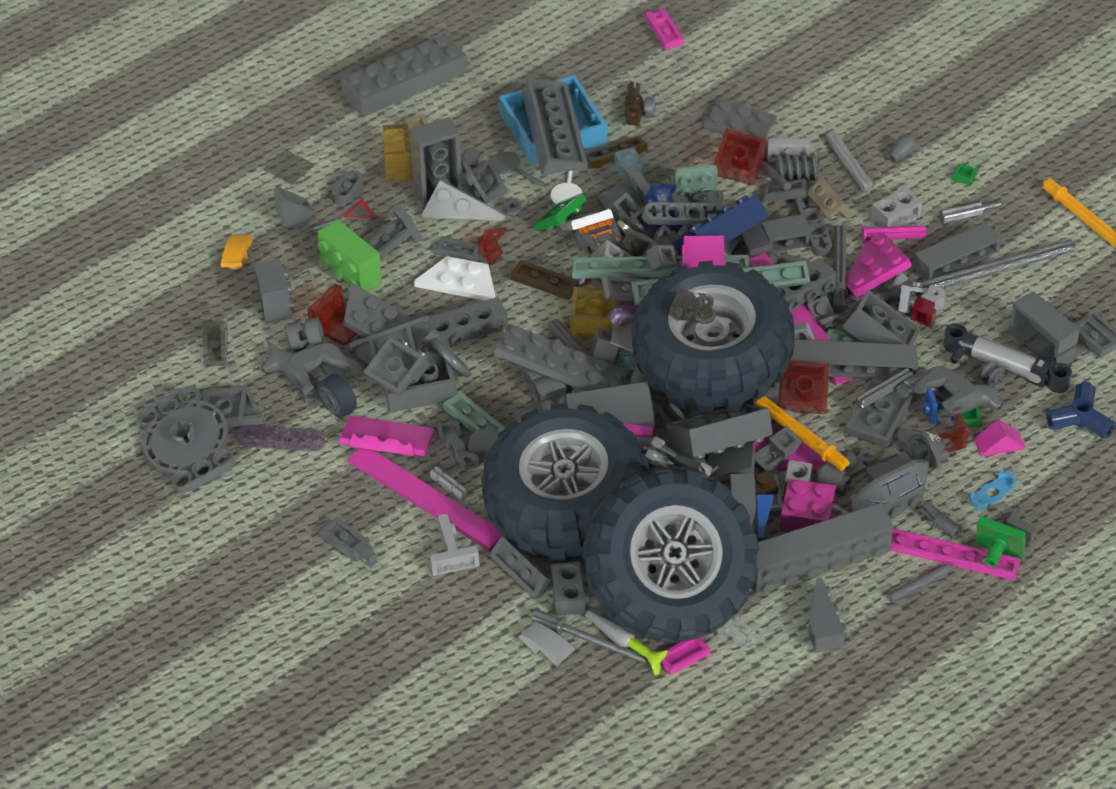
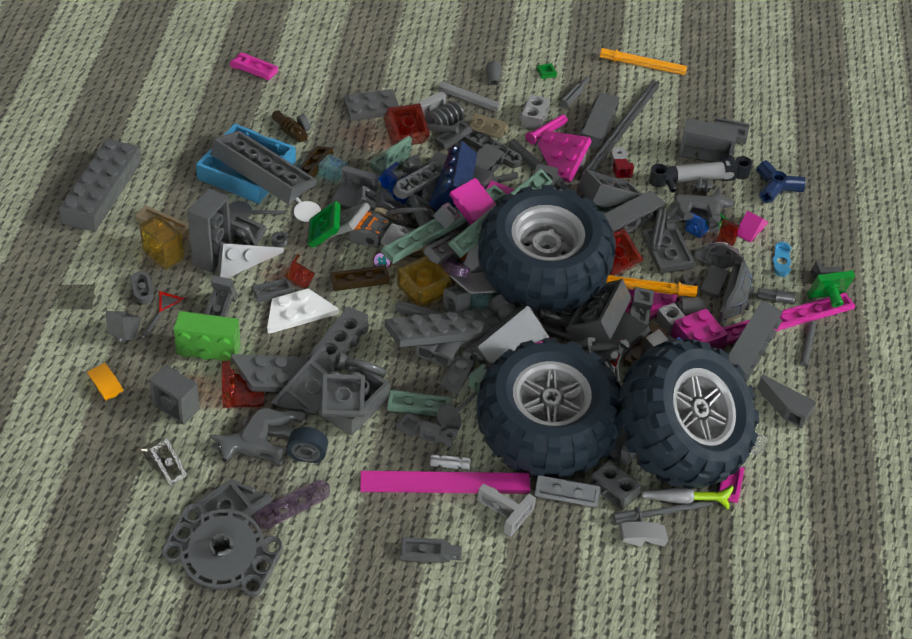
camera: 45 degrees left, 0 degrees up
(313, 332) = (237, 407): dark grey wheel -> none
(387, 436) = (370, 454): dark pink piece -> none
(691, 305) = (537, 231): clear smoke piece -> none
(908, 295) = (608, 164): bracket -> none

